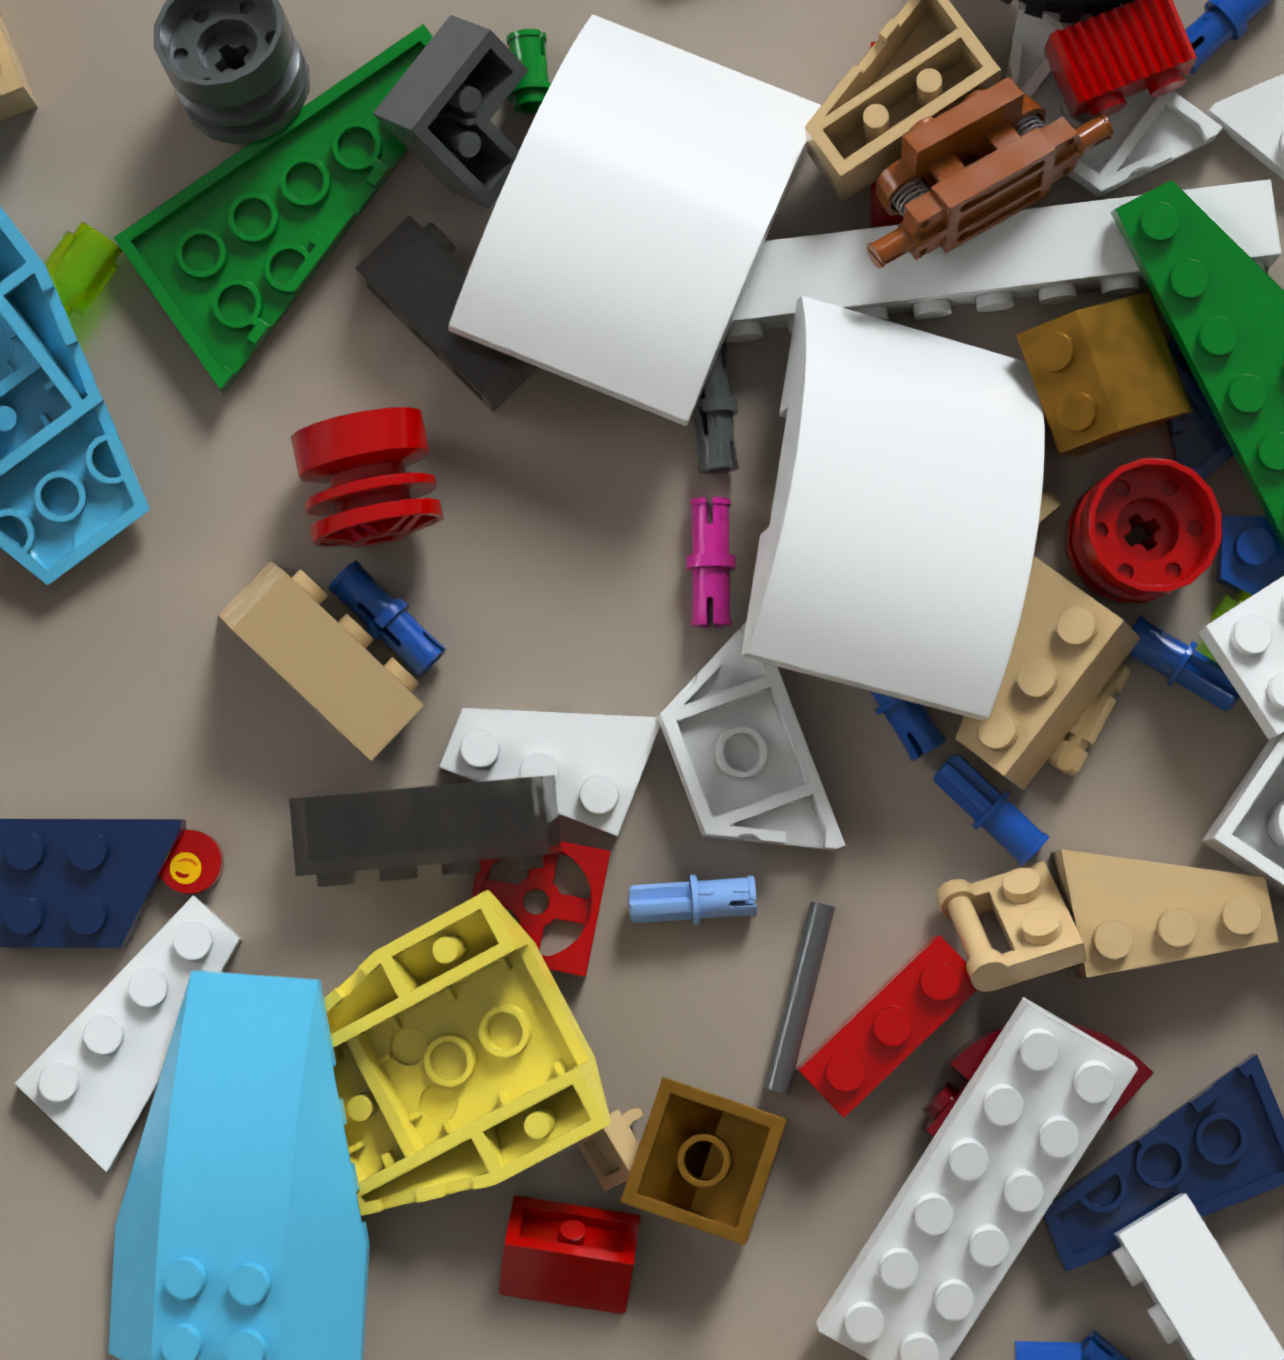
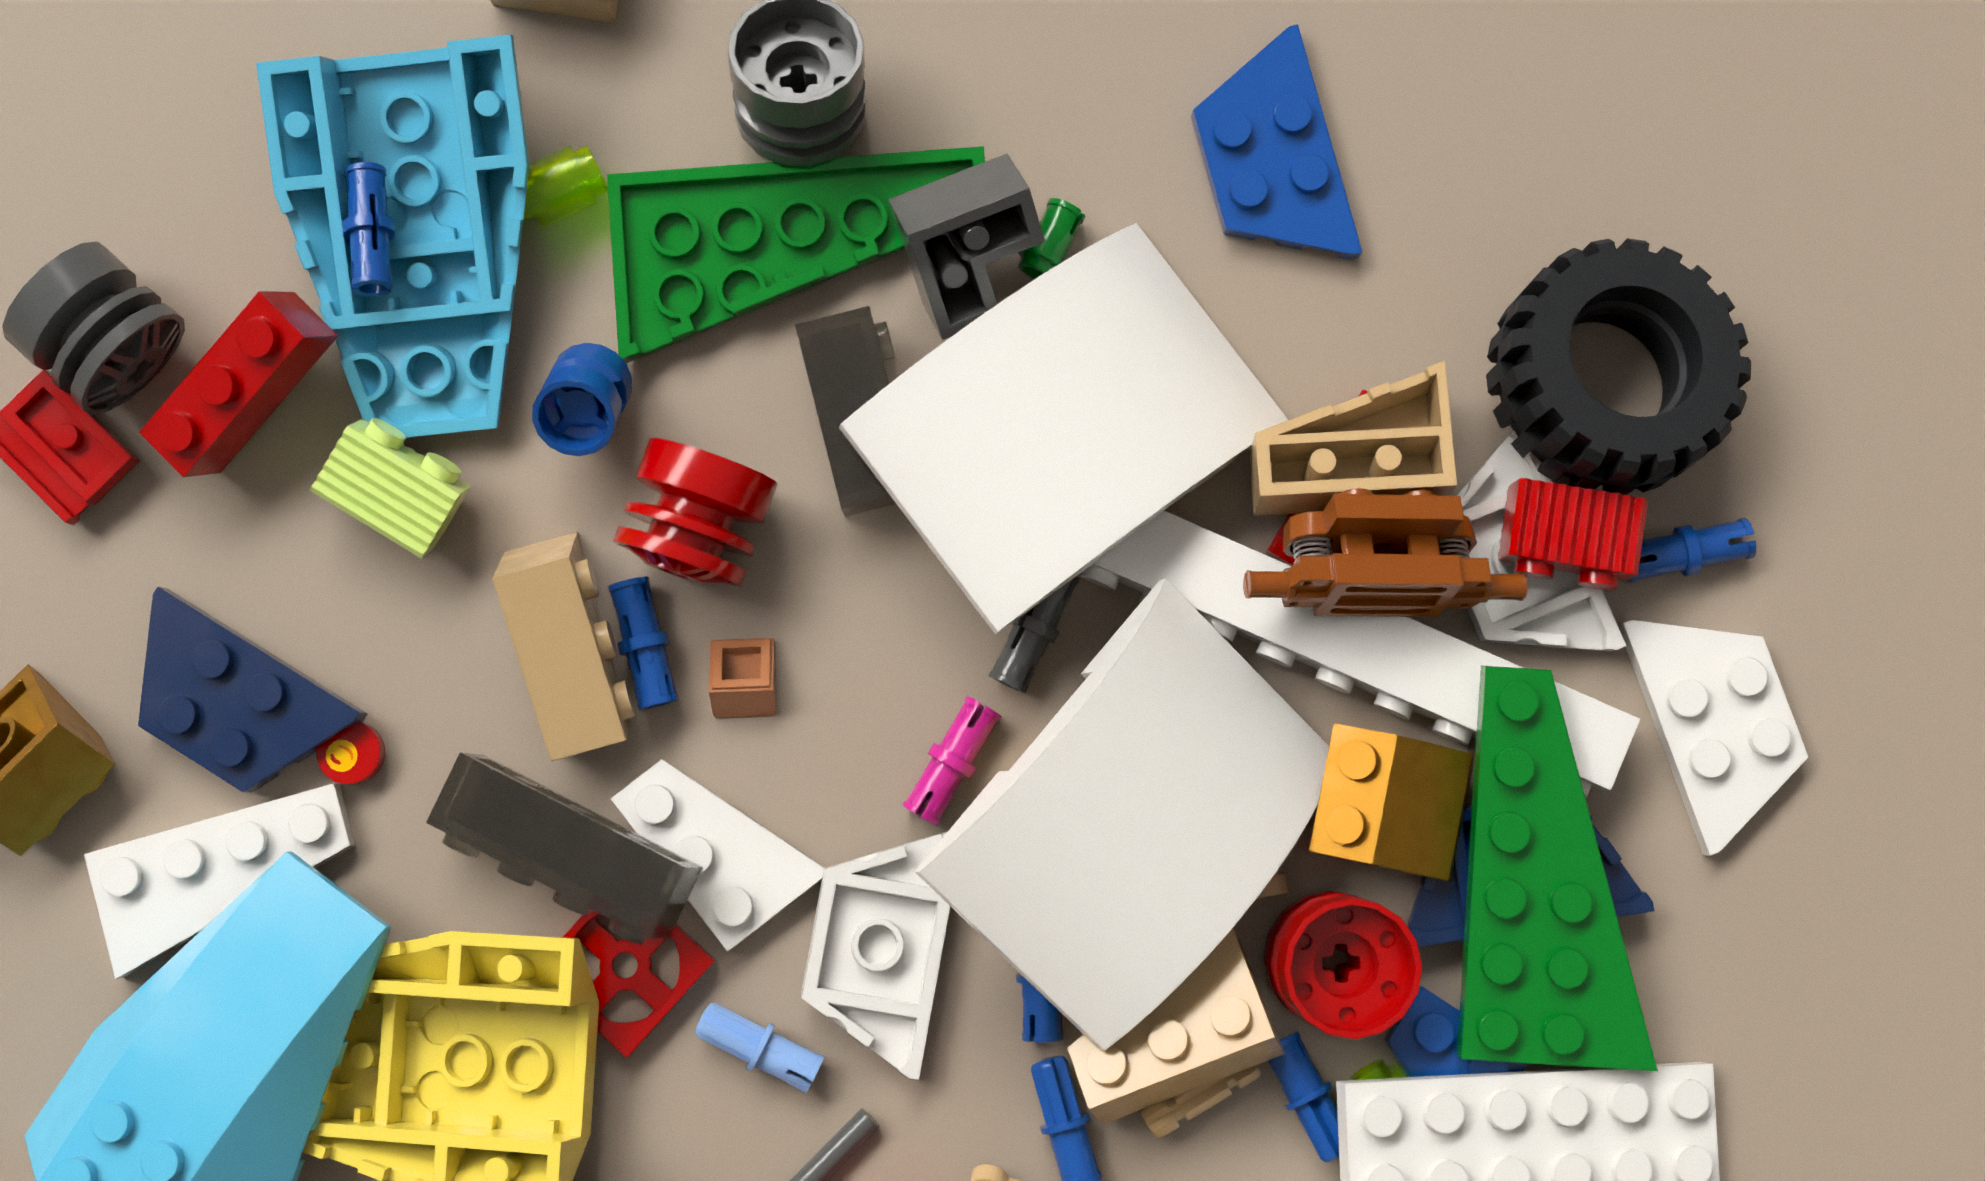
camera: 25 degrees right, 0 degrees up
(91, 610) = (391, 485): none -> yellowish green brick
(211, 439) = (582, 399): none -> blue wheel
(489, 599) = (742, 678): none -> nougat slope

